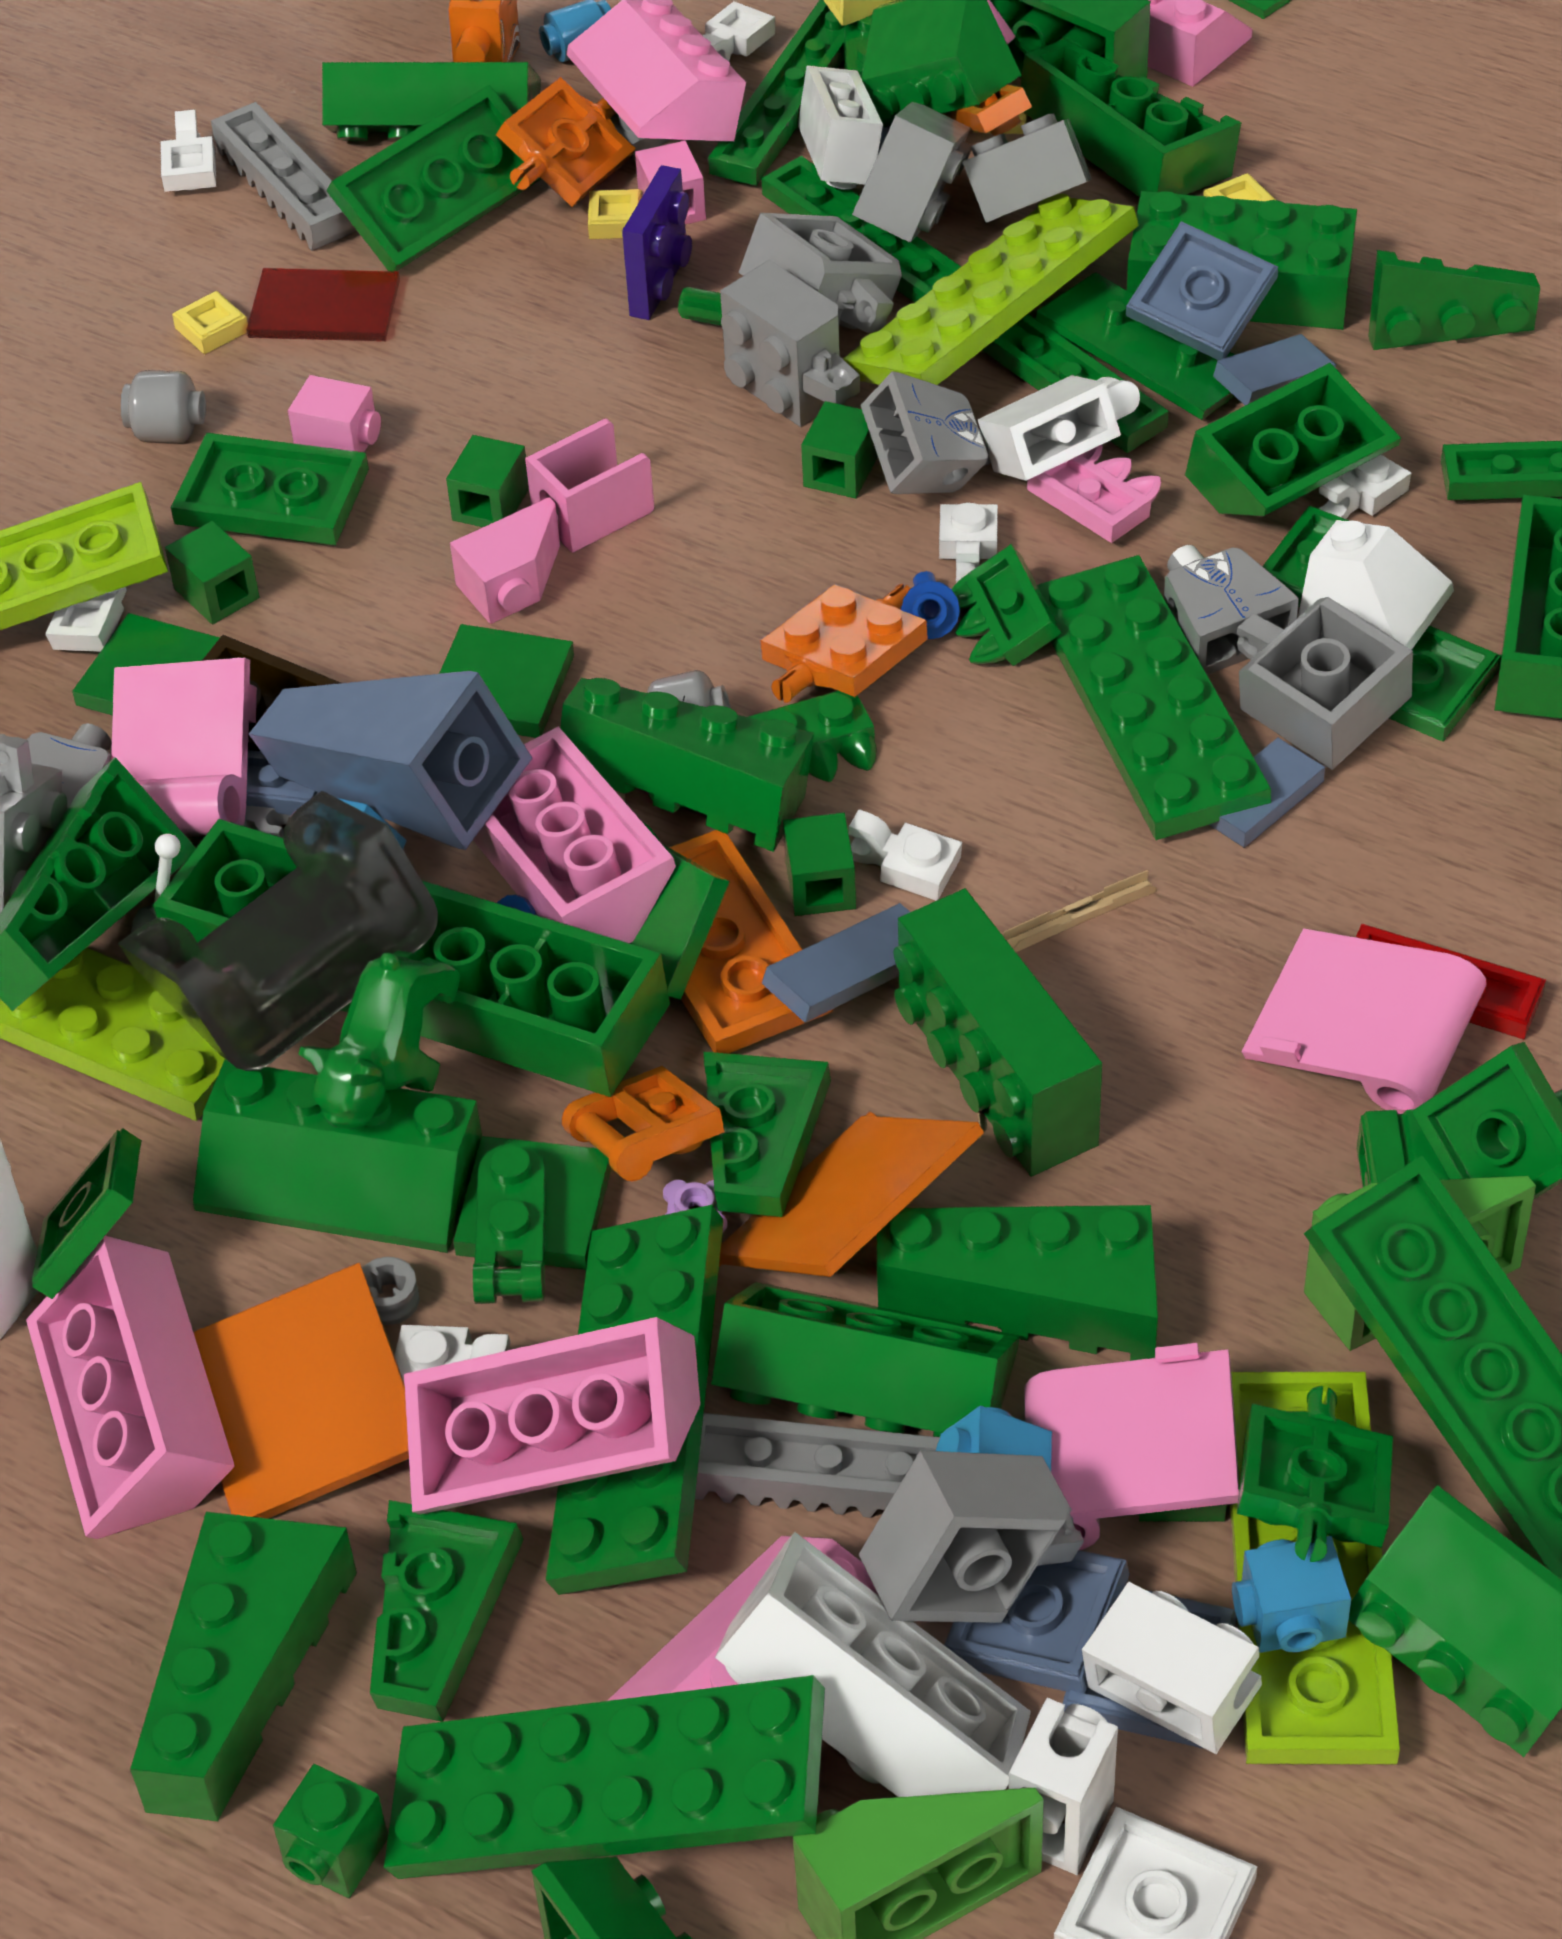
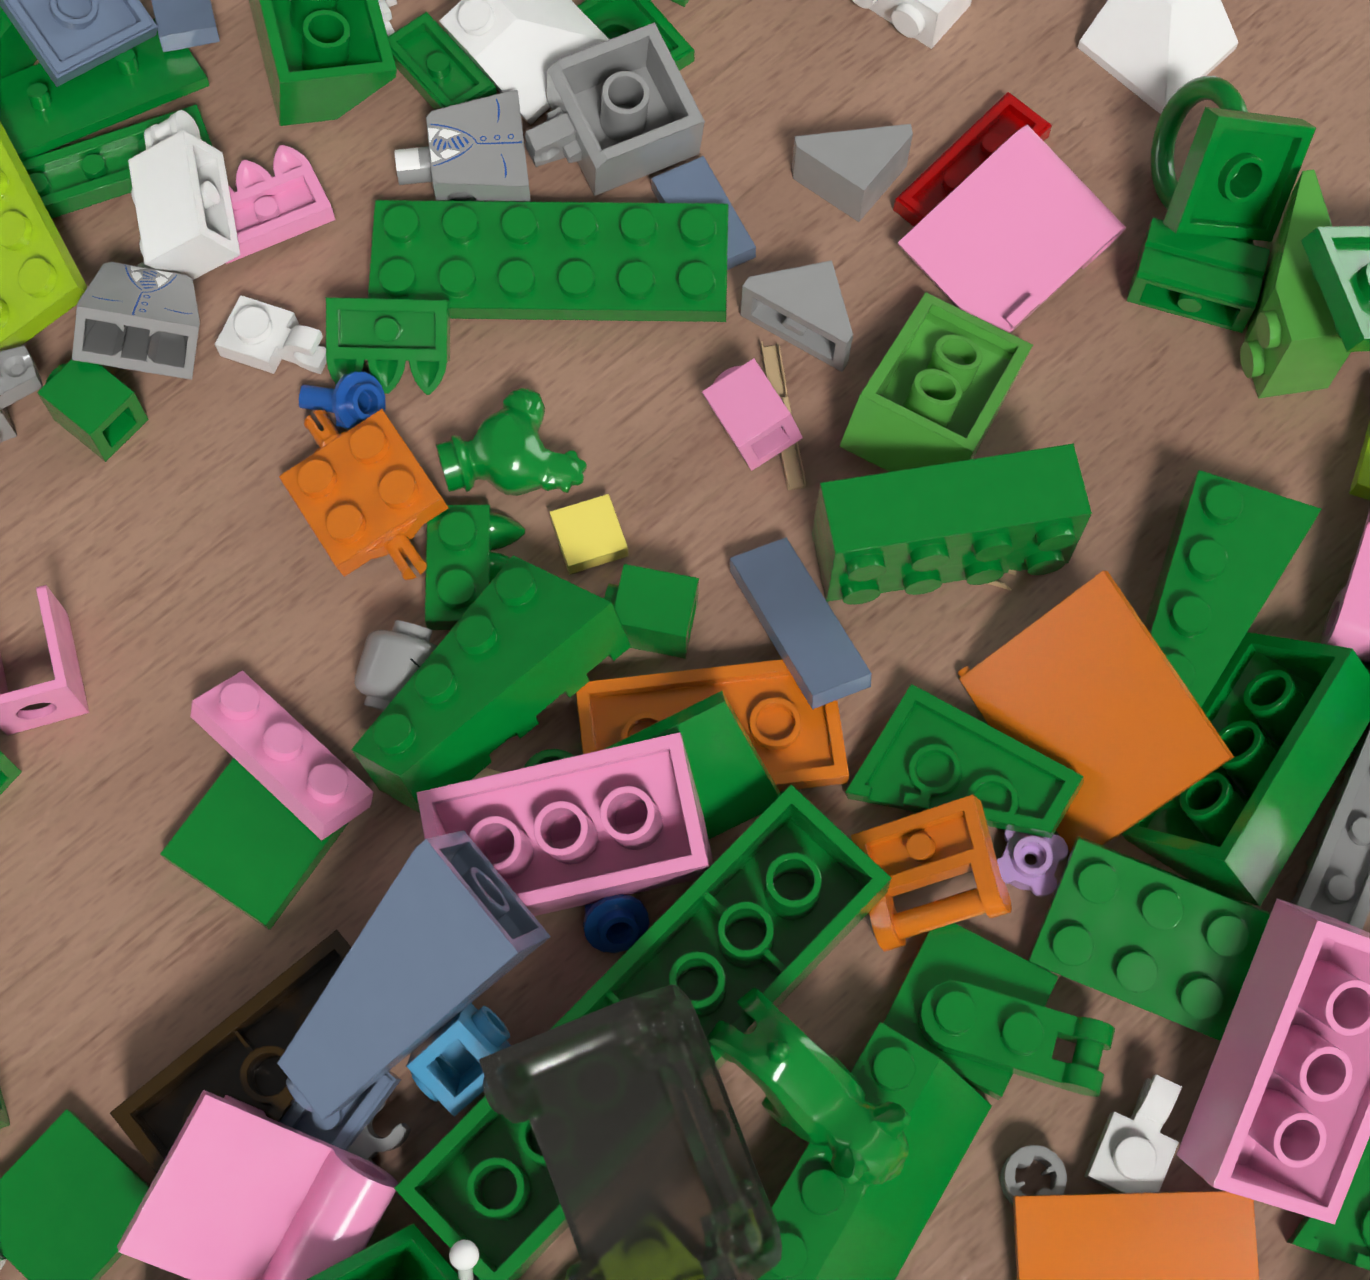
camera: 75 degrees left, 20 degrees up
(508, 560) = (96, 779): bright pink slope -> none
(583, 650) = (281, 754): none -> bright pink plate
(885, 798) = (589, 534): none -> light yellow tile
(911, 860) = (666, 528): white plate -> none
(931, 718) = (510, 452): none -> green animal
(1051, 871) = (752, 413): none -> bright pink brick
(1155, 999) = (935, 389): none -> bright green slope
(1196, 886) = (803, 309): none -> light grey slope
(1379, 881) = (852, 165): none -> light grey slope

